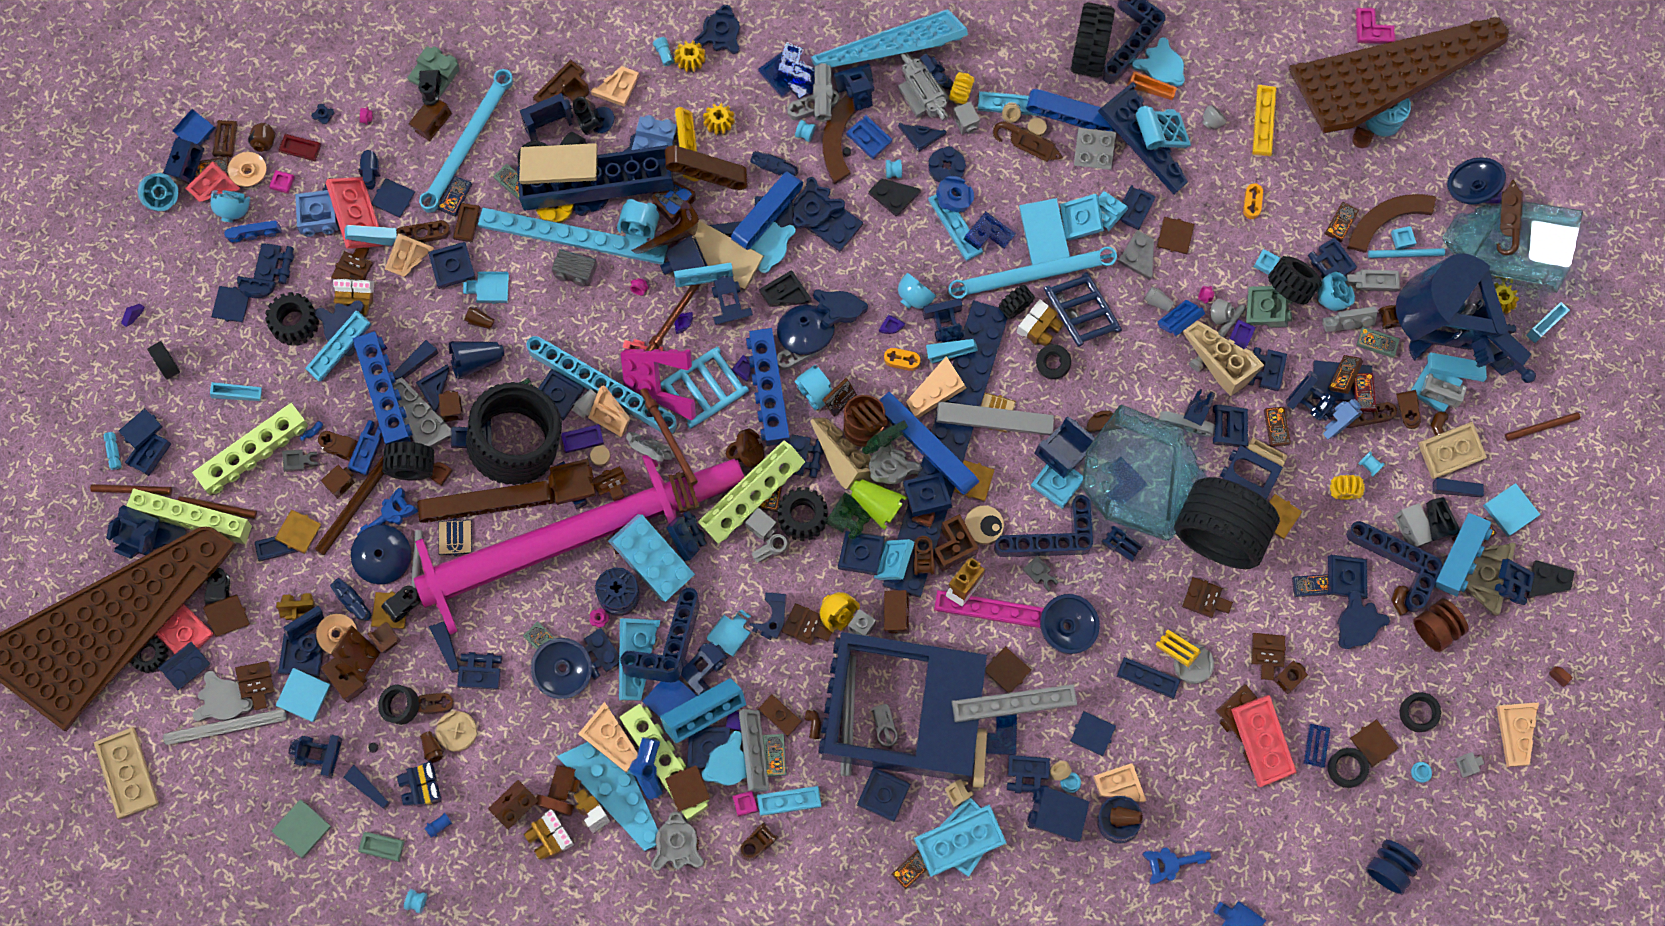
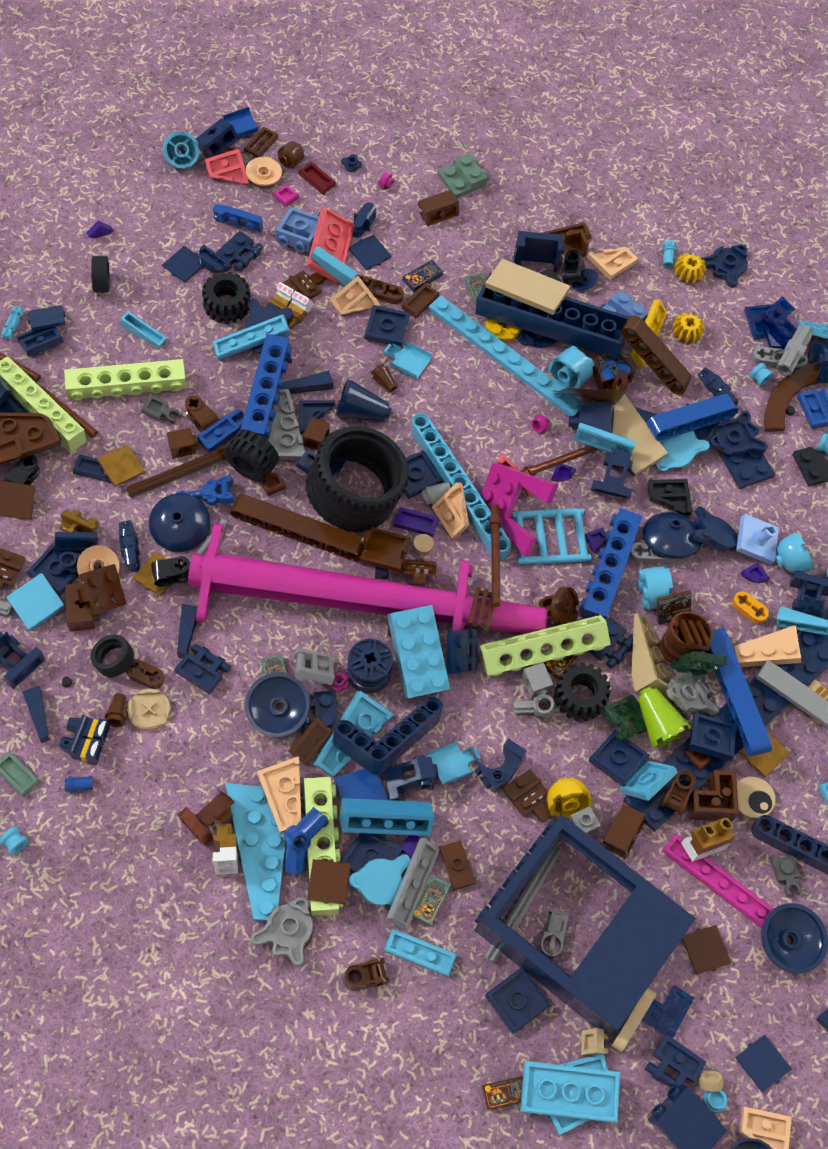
camera: 25 degrees right, 10 degrees down
(229, 205) = (231, 188): medium azure cylinder -> none
(313, 431) = (185, 394): blue piece -> none
(384, 637) = (137, 593): reddish brown panel -> none
(430, 86) = (453, 181): black piece -> none
(455, 537) = (253, 542): piece -> none
(466, 140) = (458, 239): medium azure piece -> none
(513, 804) = (157, 803): reddish brown brick -> none
(551, 834) = (176, 852): pearl gold hips -> none
(574, 268) = (491, 380): flat silver brick -> none
(578, 615) = (321, 666): none -> light grey plate
(605, 682) = (310, 741): none -> reddish brown plate
(651, 447) = (473, 559): light grey tile -> none
(745, 803) = (376, 930): dark pink tile -> none
(815, 723) = (487, 893): reddish brown arm -> none
(877, 293) = (757, 539): none -> light blue tile
(1014, 703) = (700, 982): light grey tile -> none

